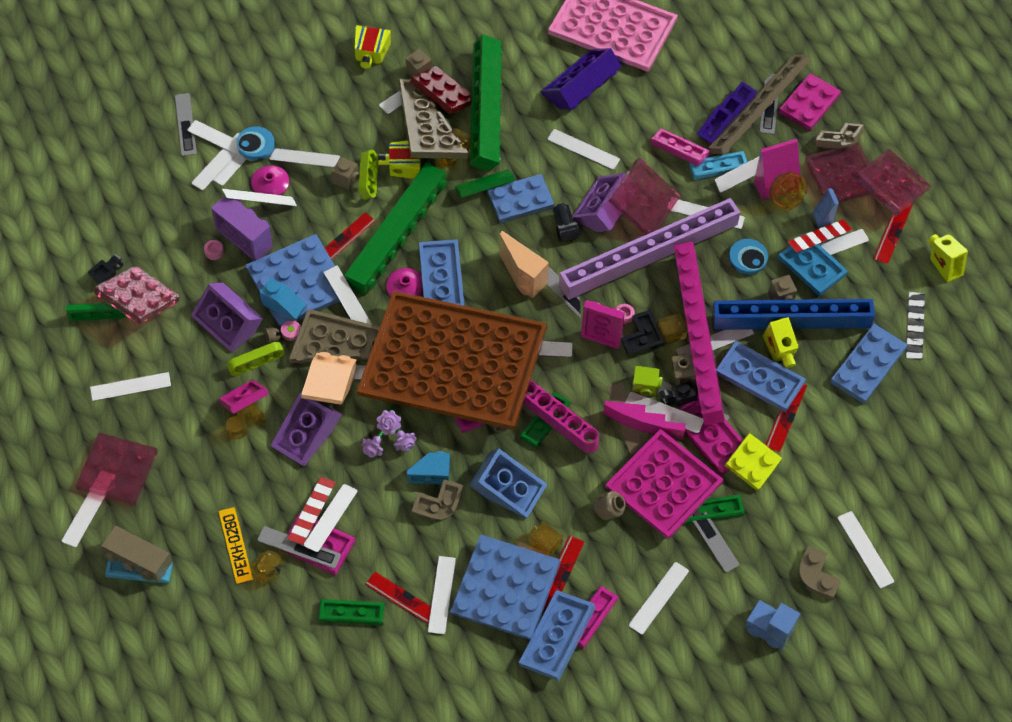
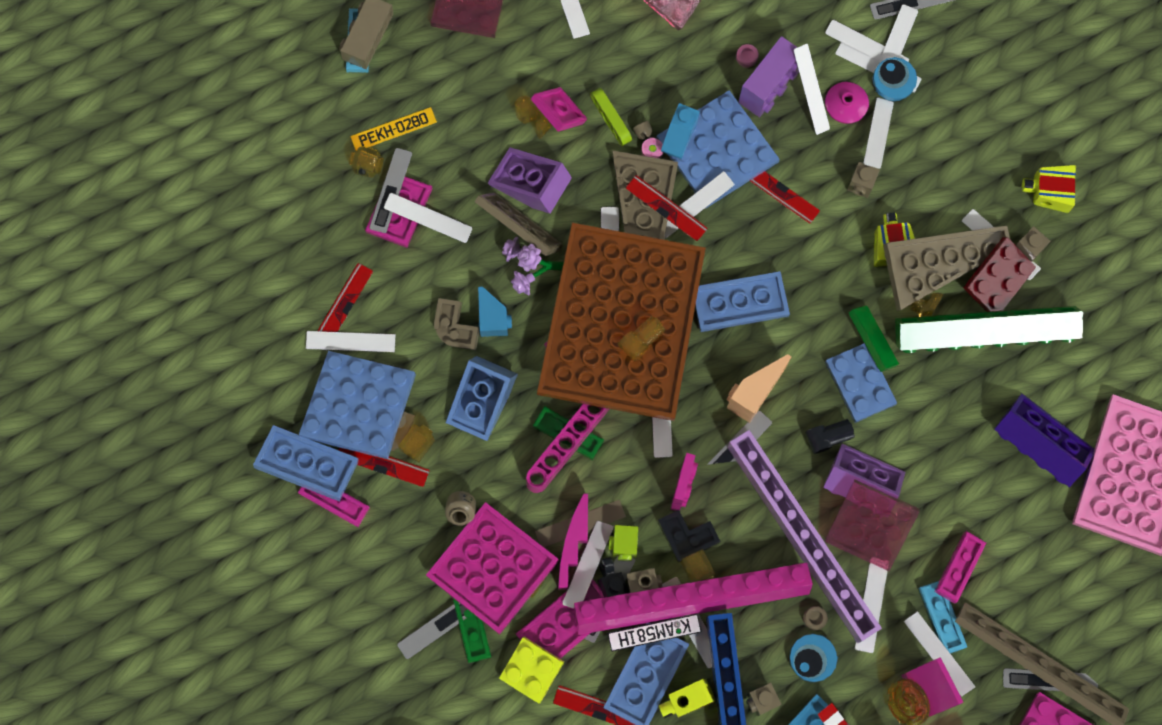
camera: 85 degrees right, 15 degrees up
(226, 316) = (661, 79): medium lavender slope -> none
(311, 510) = (434, 197): sticker -> none
(329, 378) = (583, 192): light nougat slope -> none
(348, 322) = (666, 208): none -> red sticker
(349, 436) = (519, 223): none -> dark tan tile
(351, 612) = (324, 252): green tile -> none
(368, 174) = (858, 200): lime beam -> none
(396, 229) = (797, 245): green brick -> none
(396, 279) = (718, 271): dark pink dish -> none
(477, 343) = (638, 342): none -> clear yellow piece
(583, 149) = (944, 452): white sticker -> none
(629, 311) = (716, 513): bright pink tile -> none
(658, 598) = (362, 571): white sticker -> none
(715, 252) = (815, 618): none -> dark tan tile
(725, 365) = (654, 632): none -> sticker
(727, 112) = (1022, 624): dark purple slope -> none
(772, 624) = (330, 695): medium blue brick -> none

